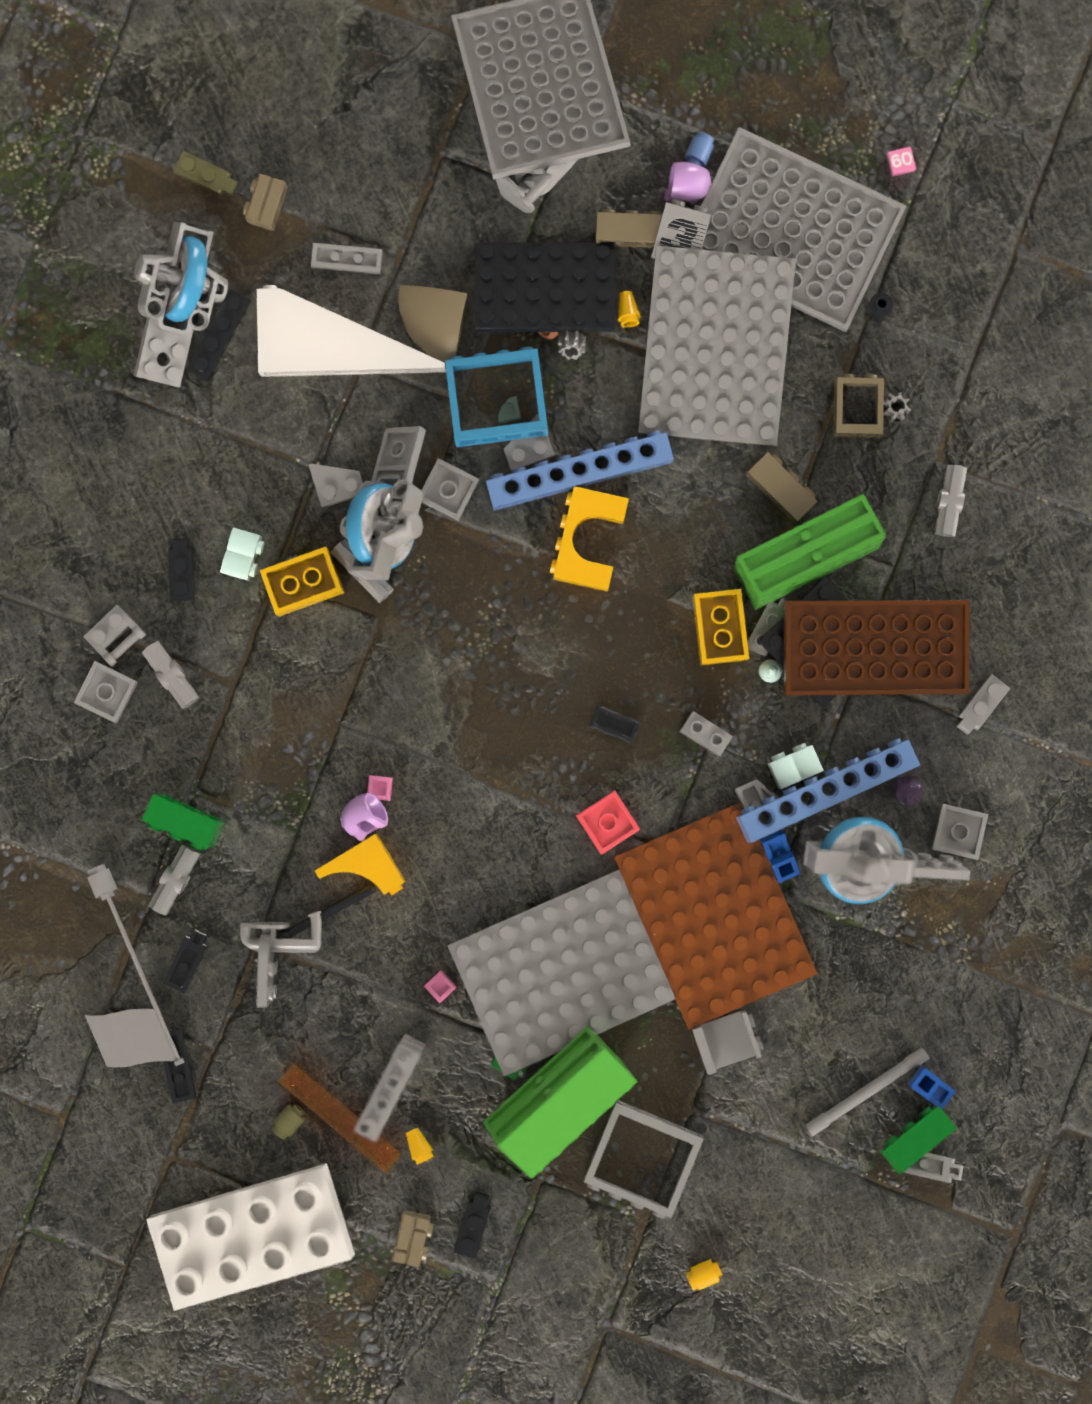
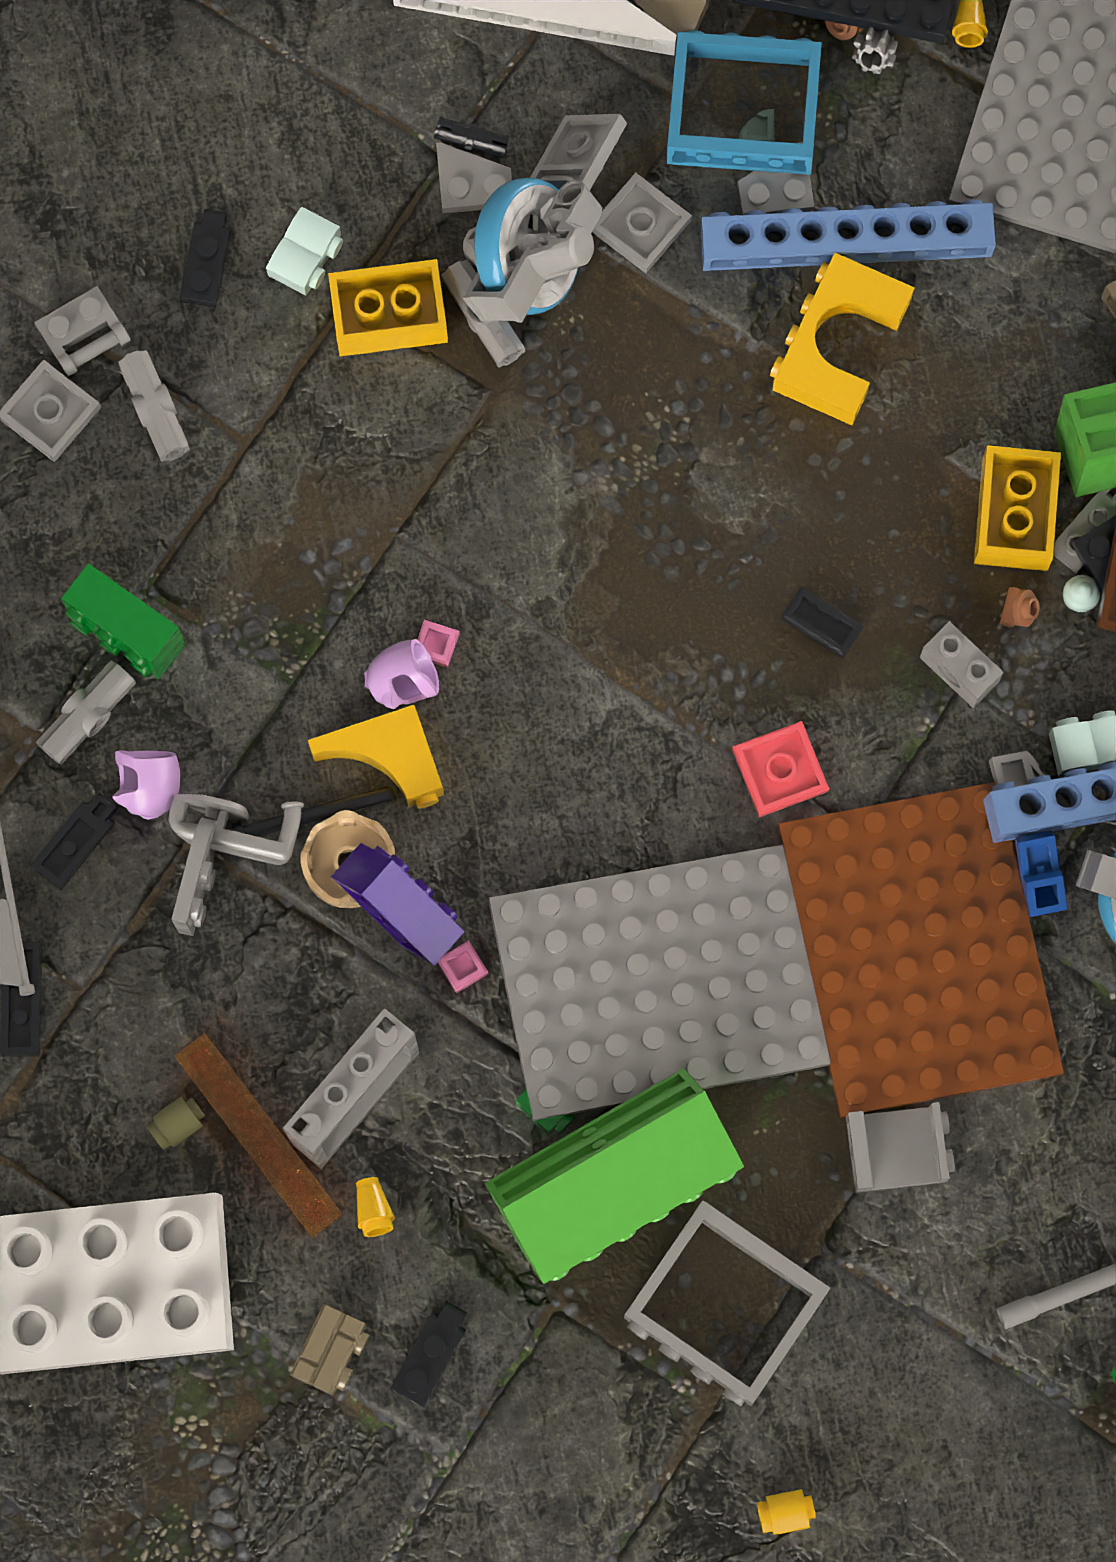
camera: 10 degrees right, 10 degrees down
(222, 915) = (147, 781): none -> lavender piece
(329, 455) = (471, 137): none -> black pin
(340, 942) = (328, 843): none -> tan plate
(393, 964) = (399, 902): none -> brick
(734, 688) = (1019, 608): none -> nougat plate

